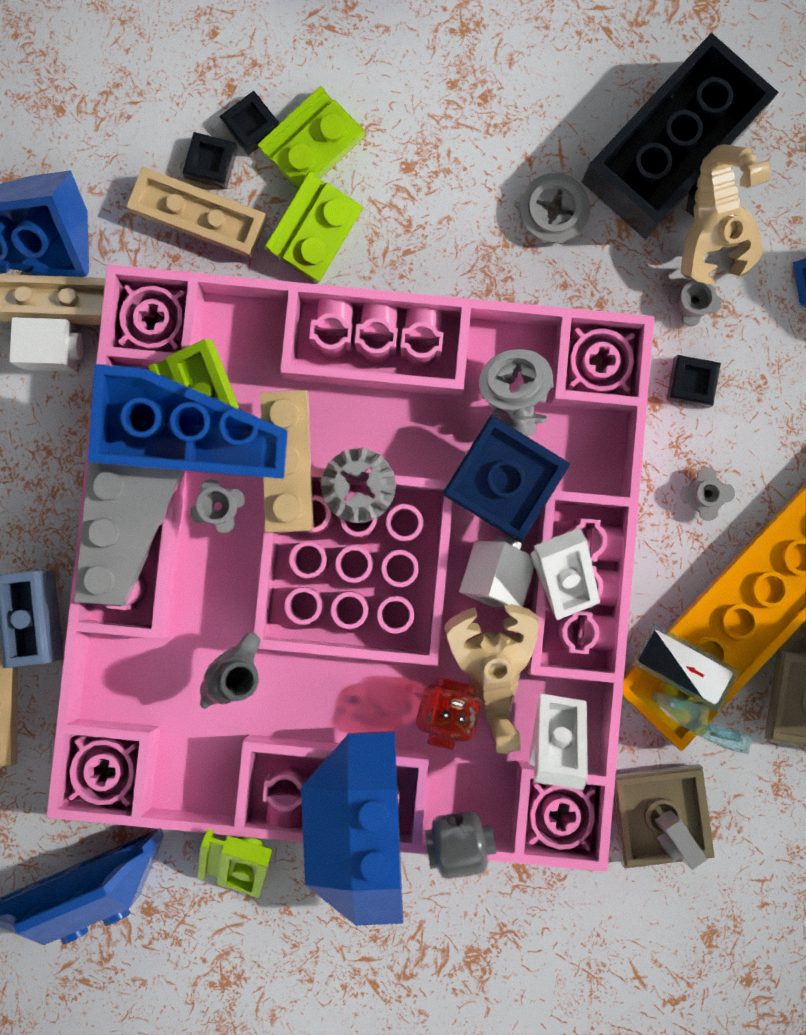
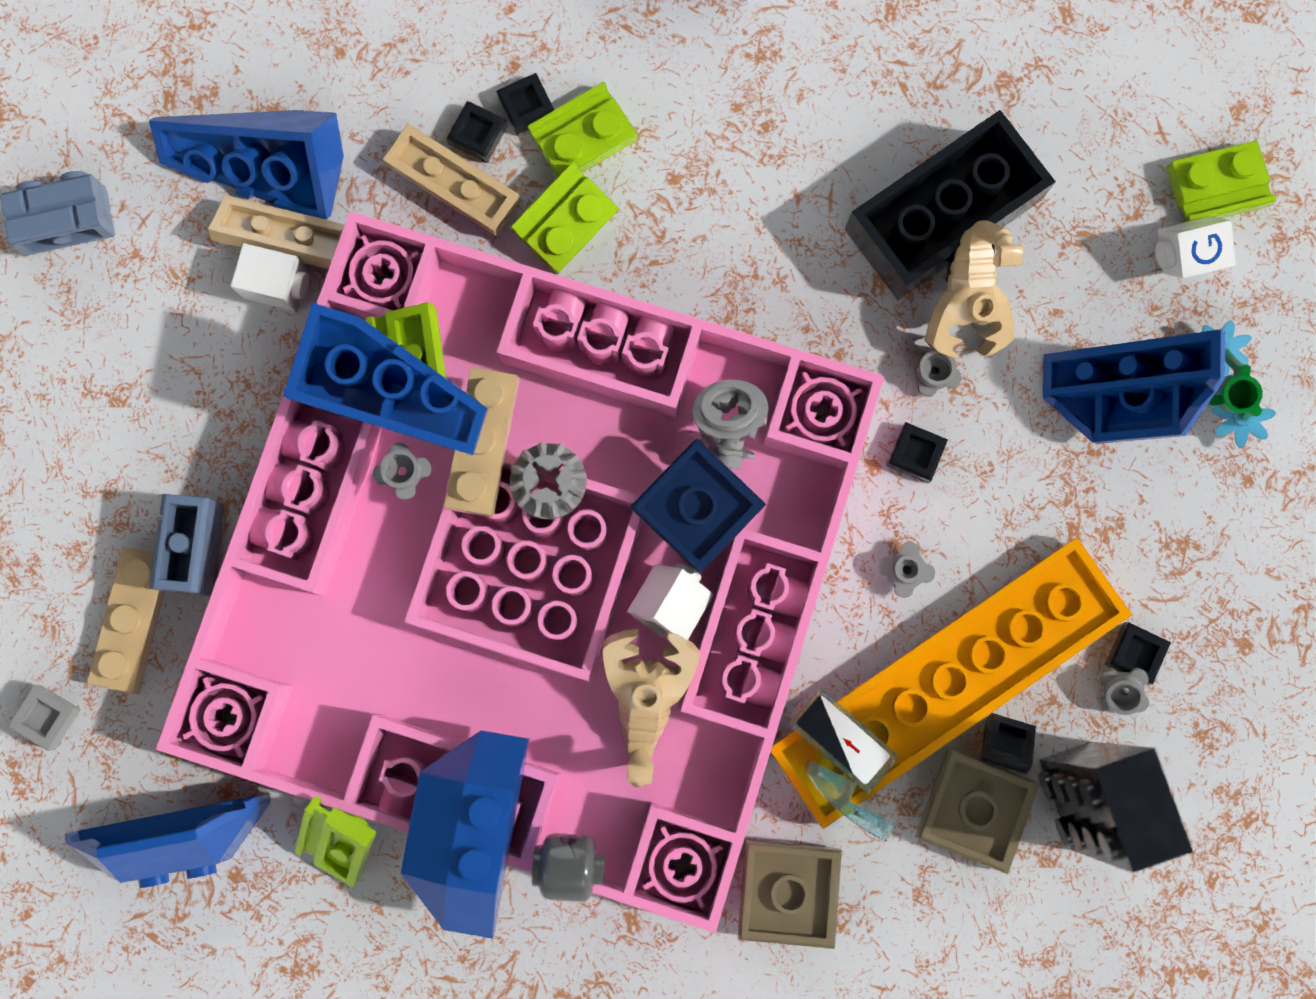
camera: 15 degrees right, 5 degrees down
(118, 527) = (299, 470): light grey wing -> none
(231, 674) = (376, 642): dark grey animal -> none
(448, 713) = (587, 731): clear red head -> none
(560, 742) = (693, 783): white slope -> none
(566, 573) = (737, 613): white slope -> none
(573, 202) = (804, 231): light grey gear -> none
(678, 840) = (797, 919): light grey plate -> none

